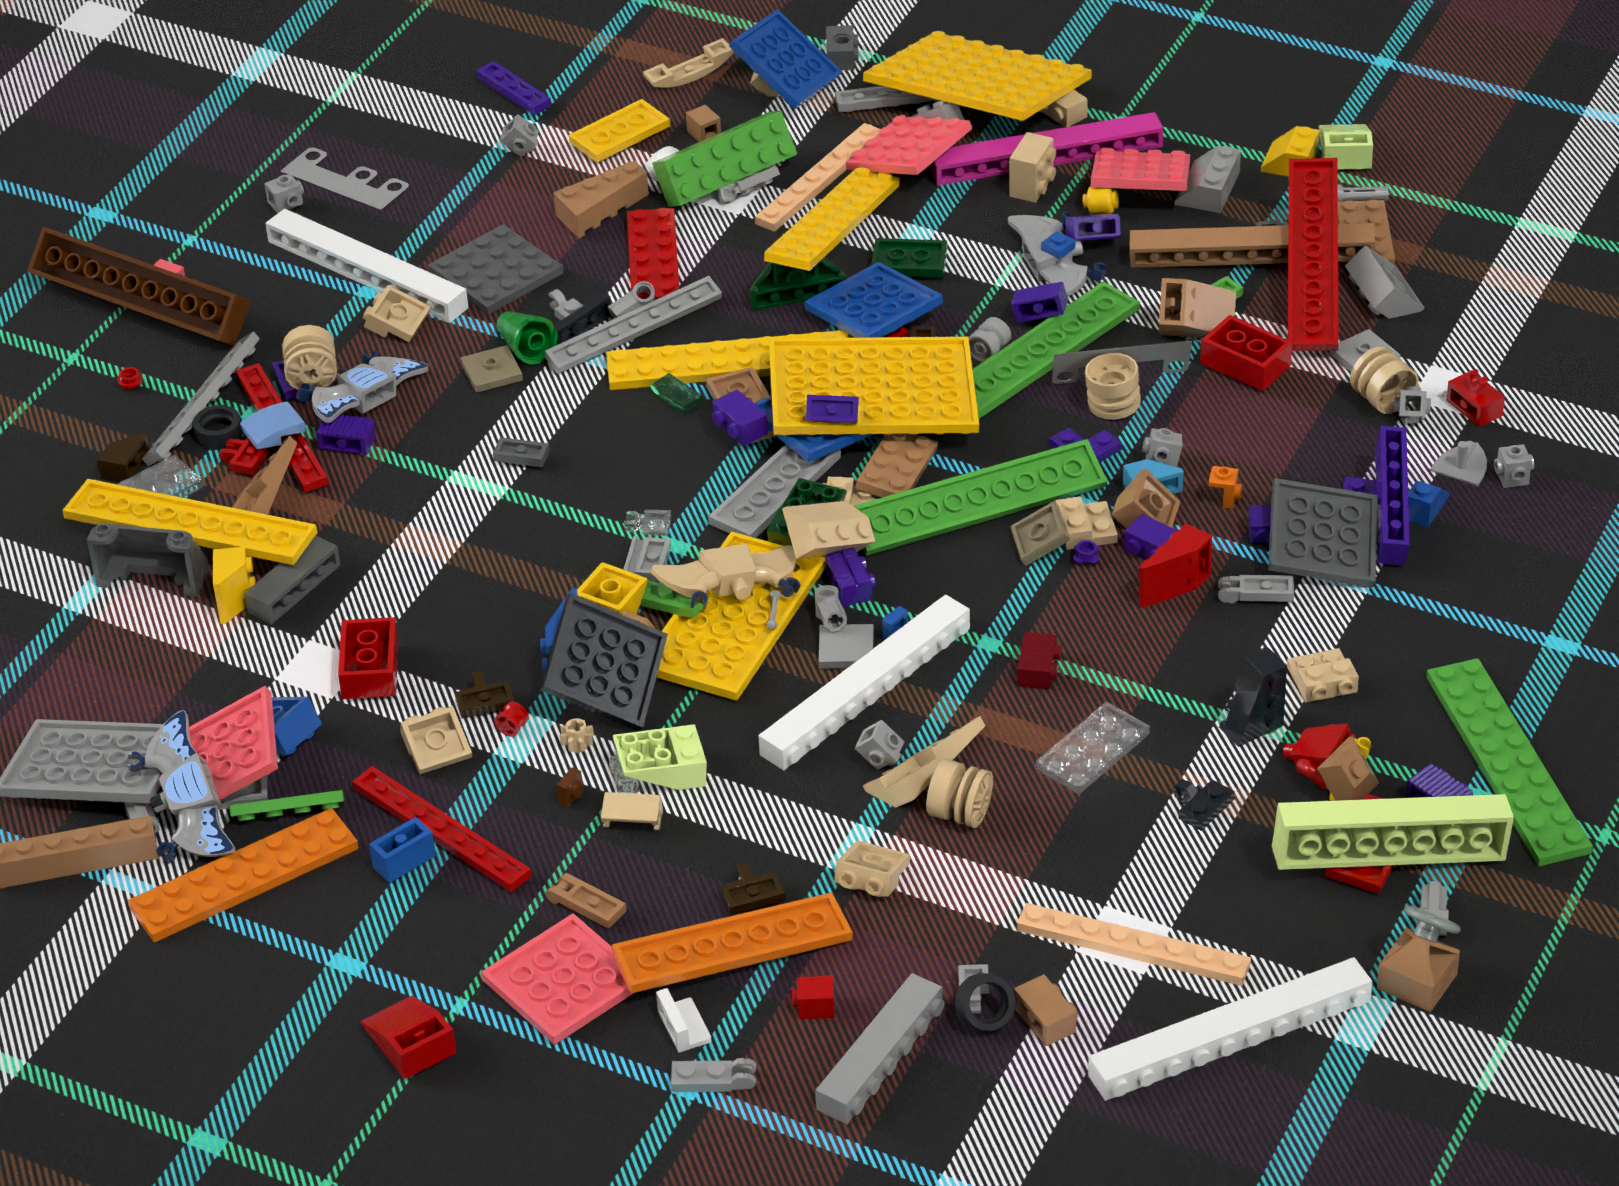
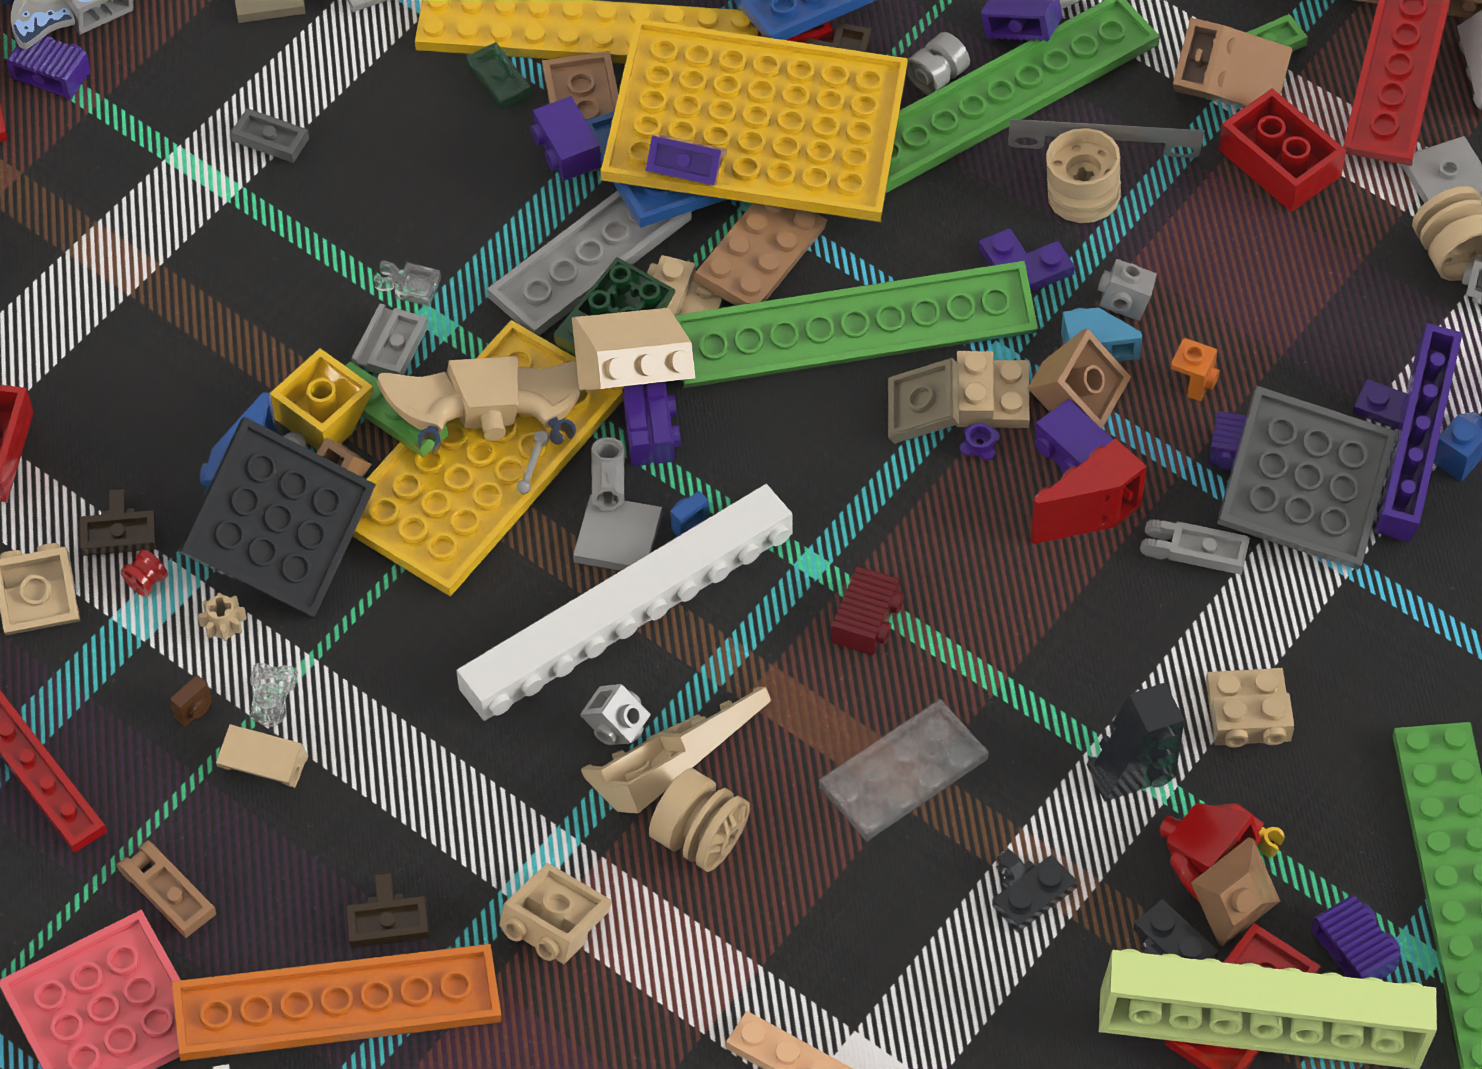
camera: 10 degrees right, 15 degrees up
(663, 757) = (319, 679): yellowish green slope -> none

